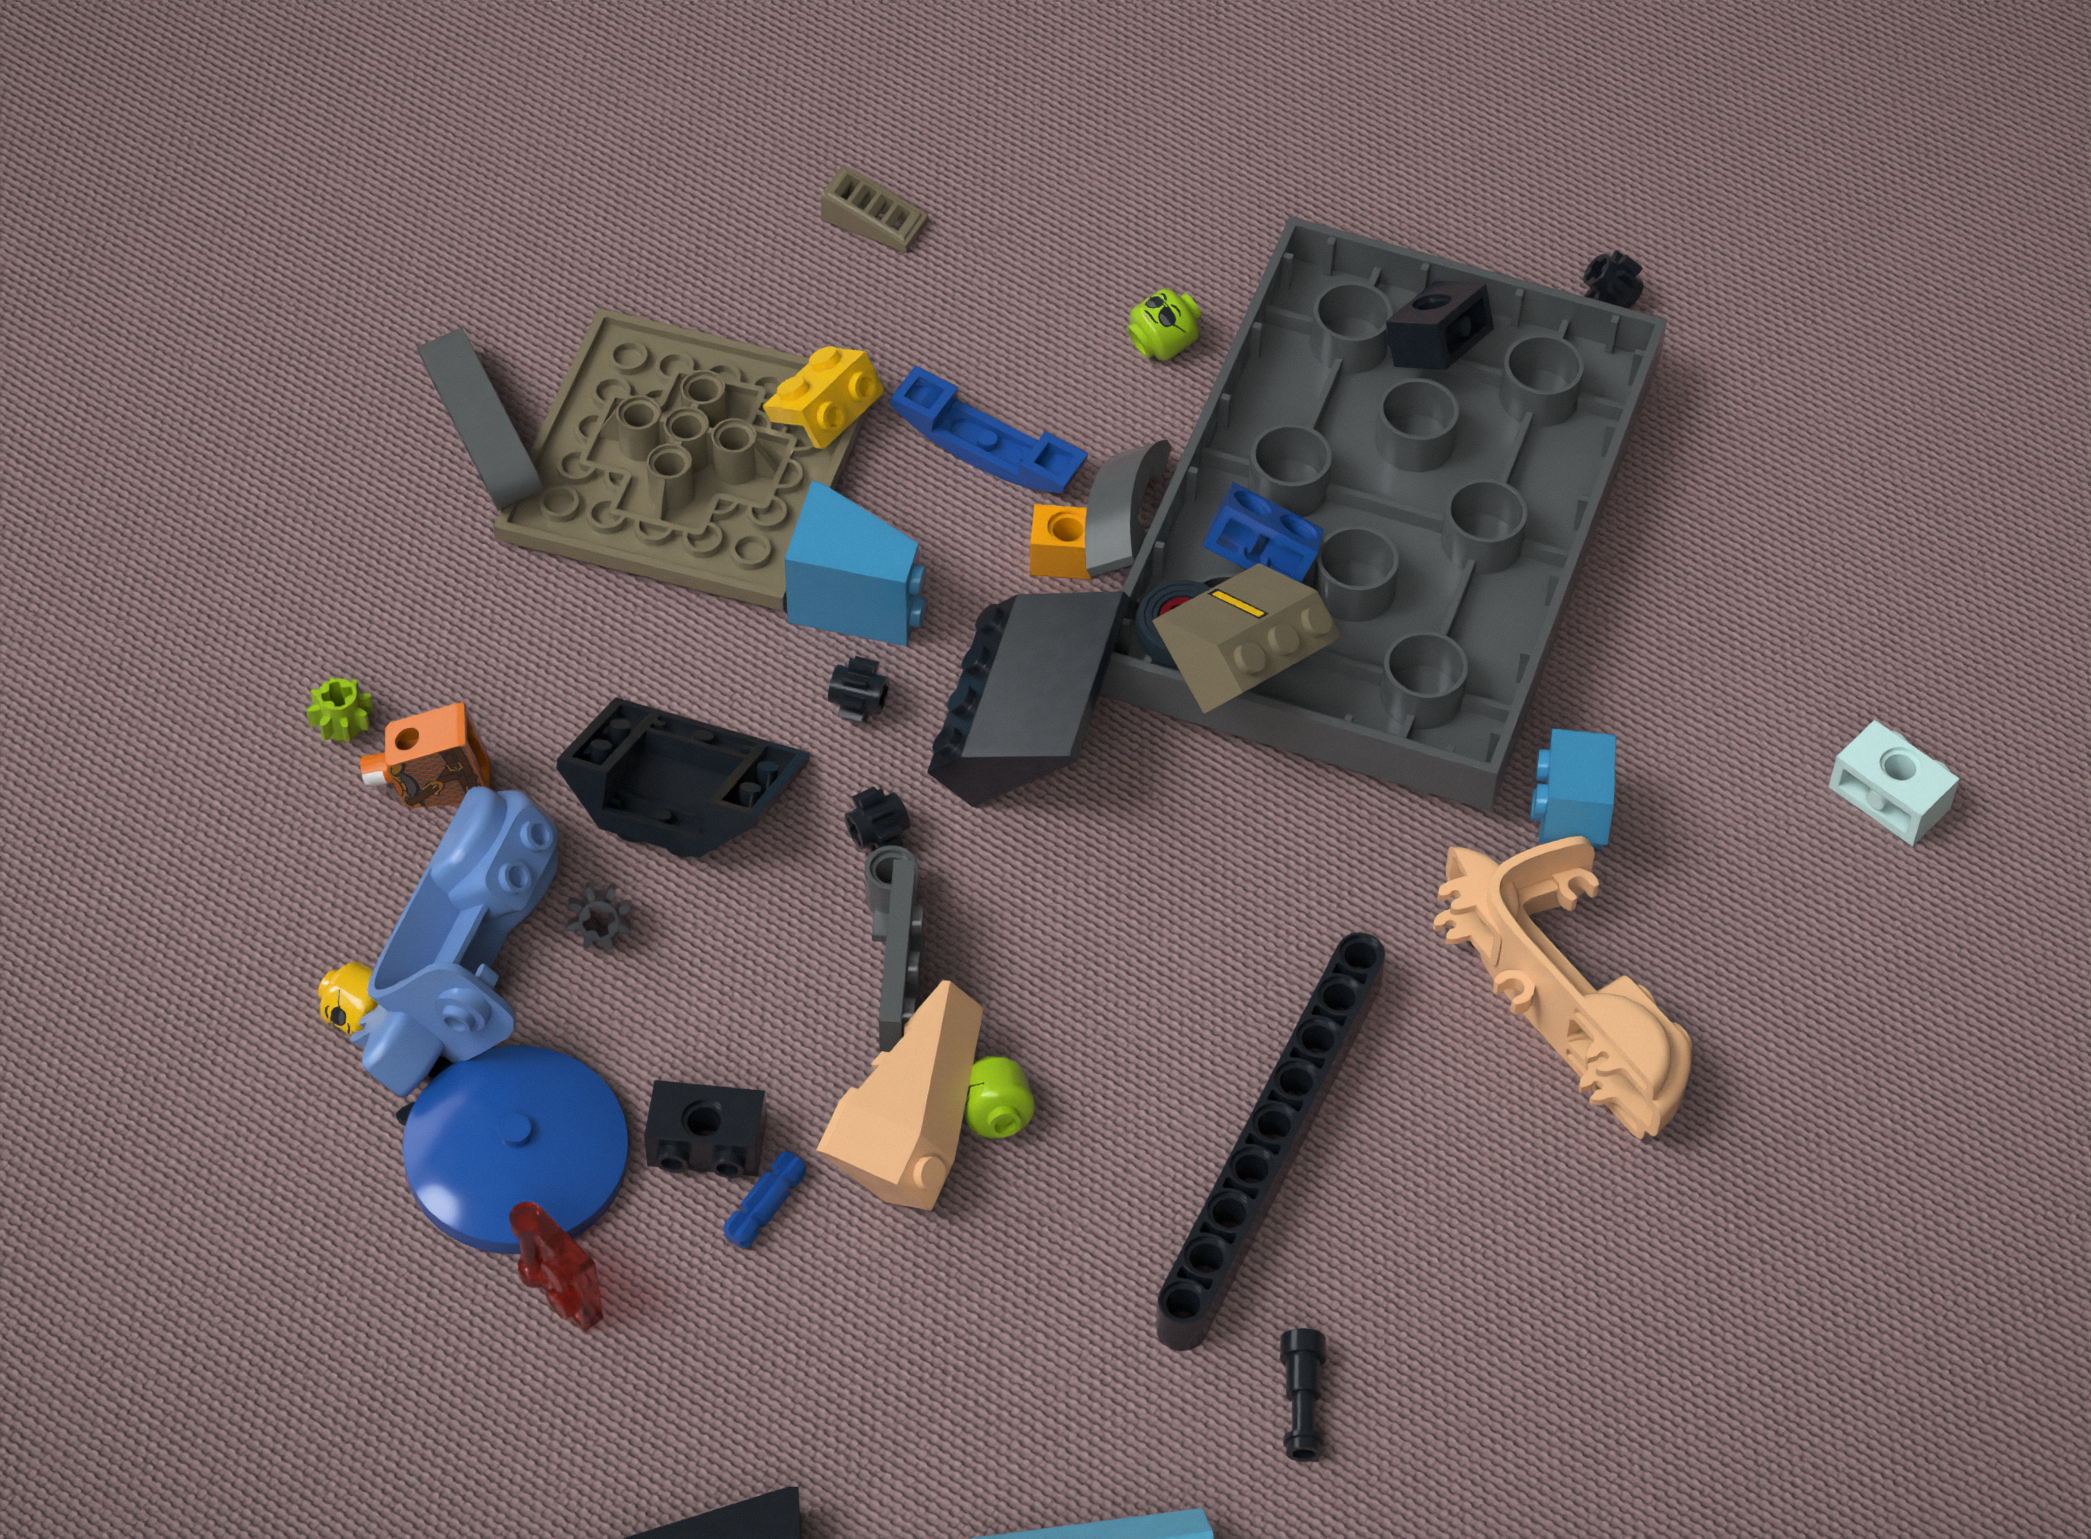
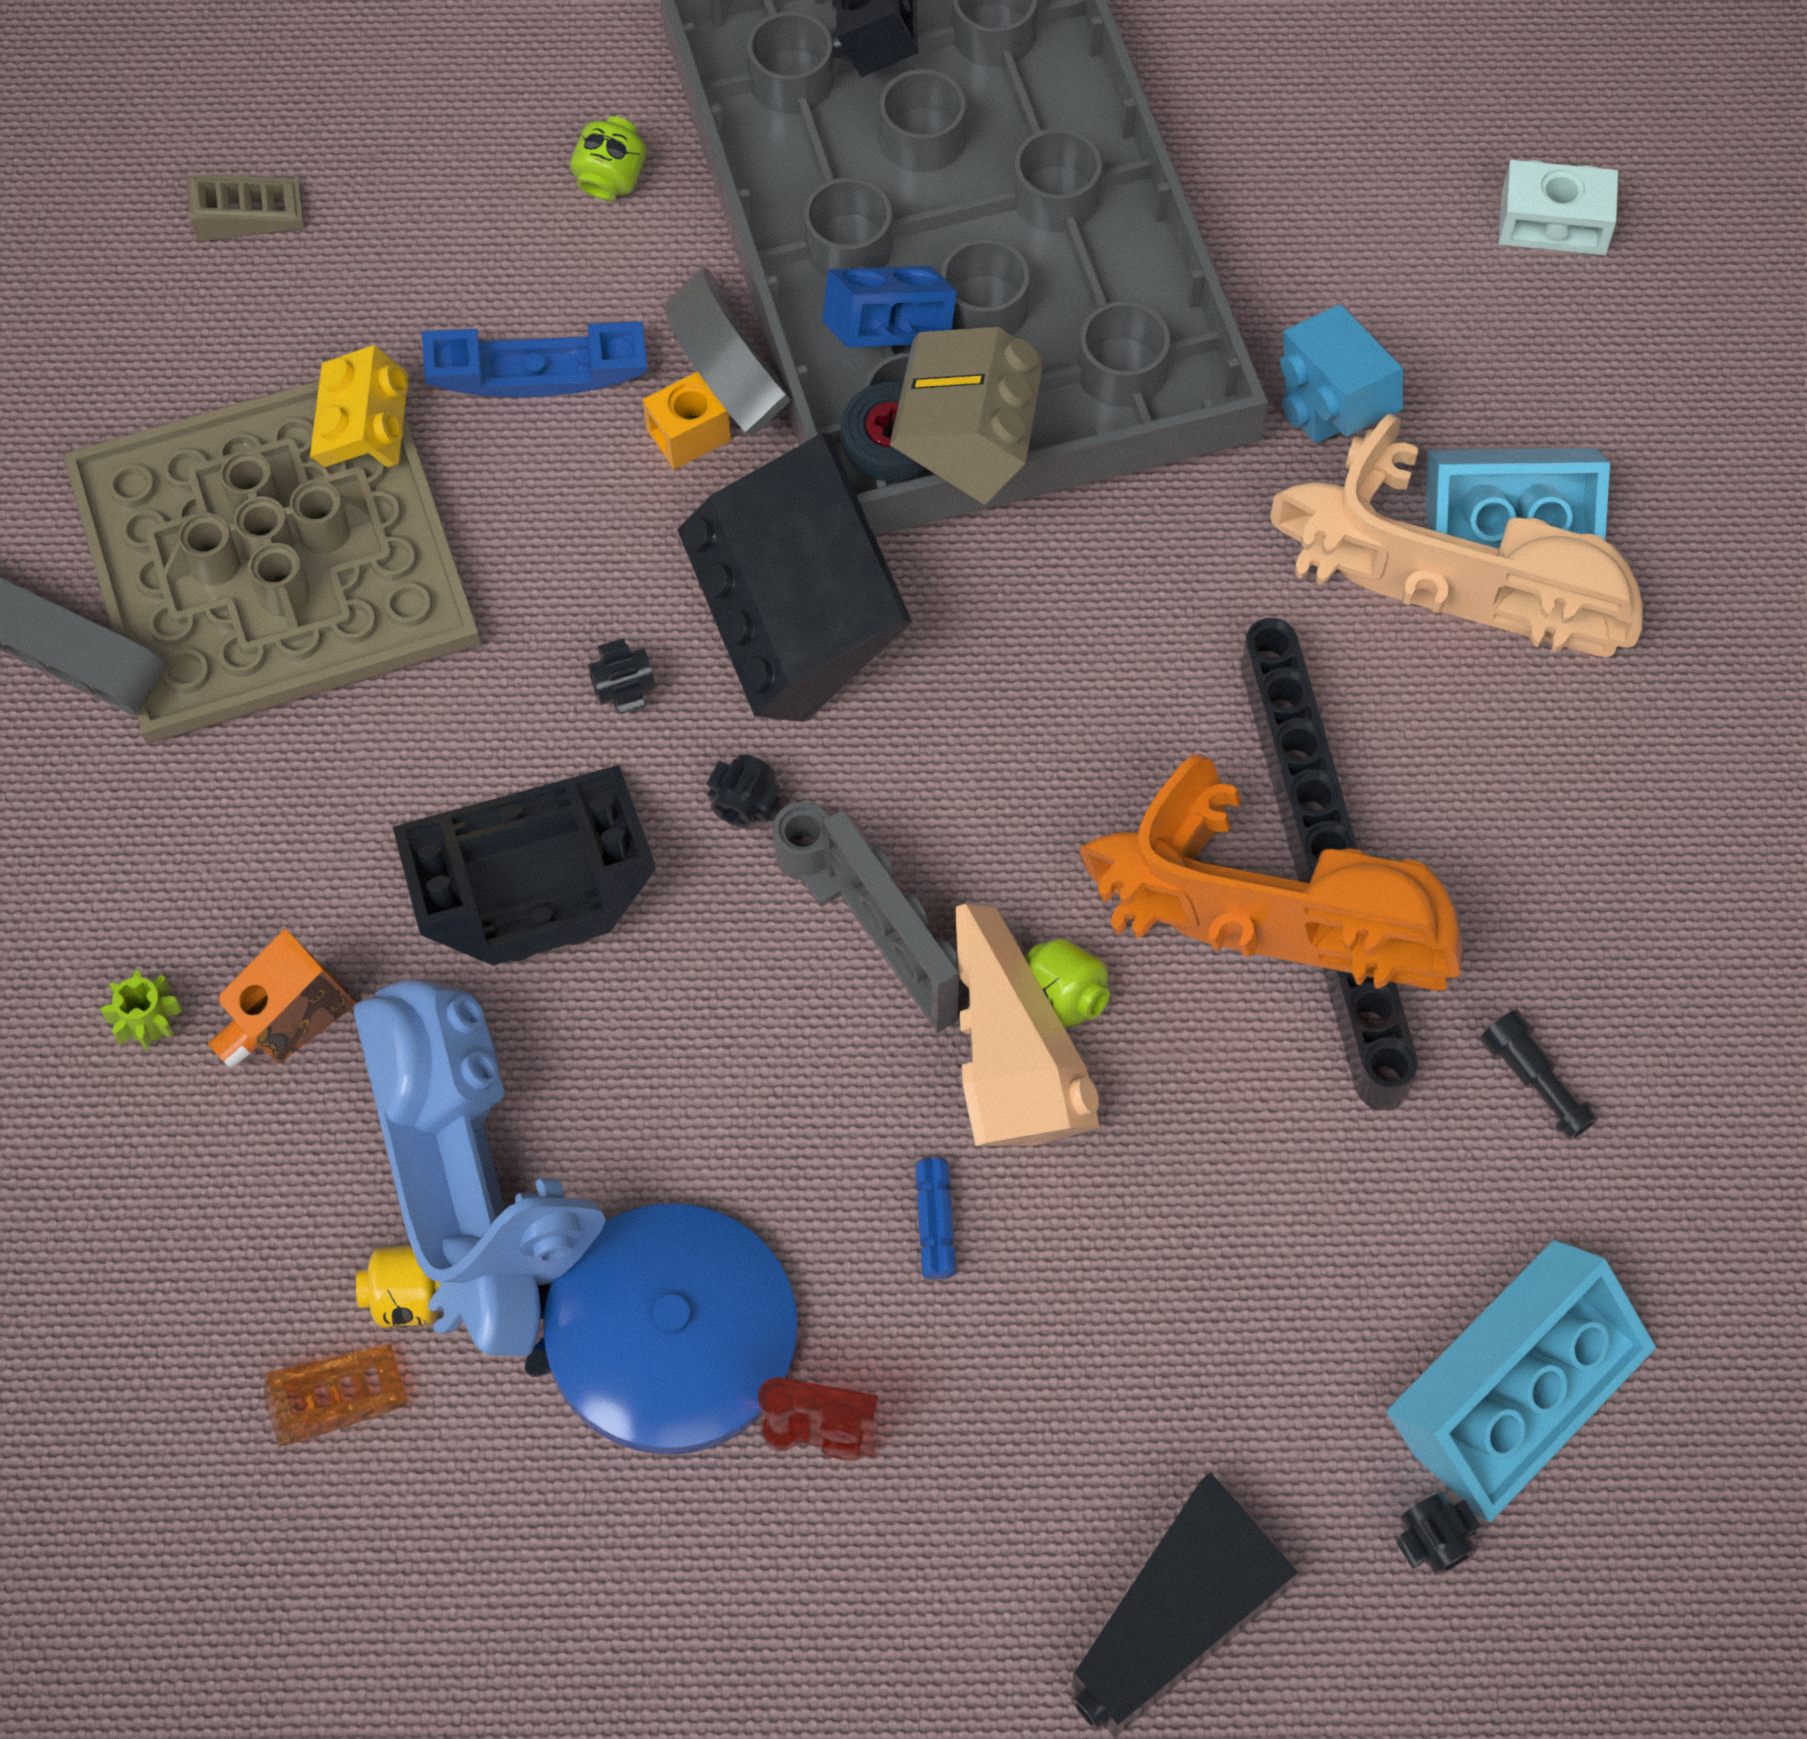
camera: 35 degrees left, 10 degrees up
(245, 1019) = (316, 1421): none -> clear orange slope
(590, 927) = (548, 1047): black gear -> none
(685, 1109) = (848, 1159): black brick -> none
(852, 571) = (531, 564): dark azure slope -> none
(1223, 1163) = (1351, 917): none -> orange piece
(1683, 975) = (1480, 489): none -> medium azure slope

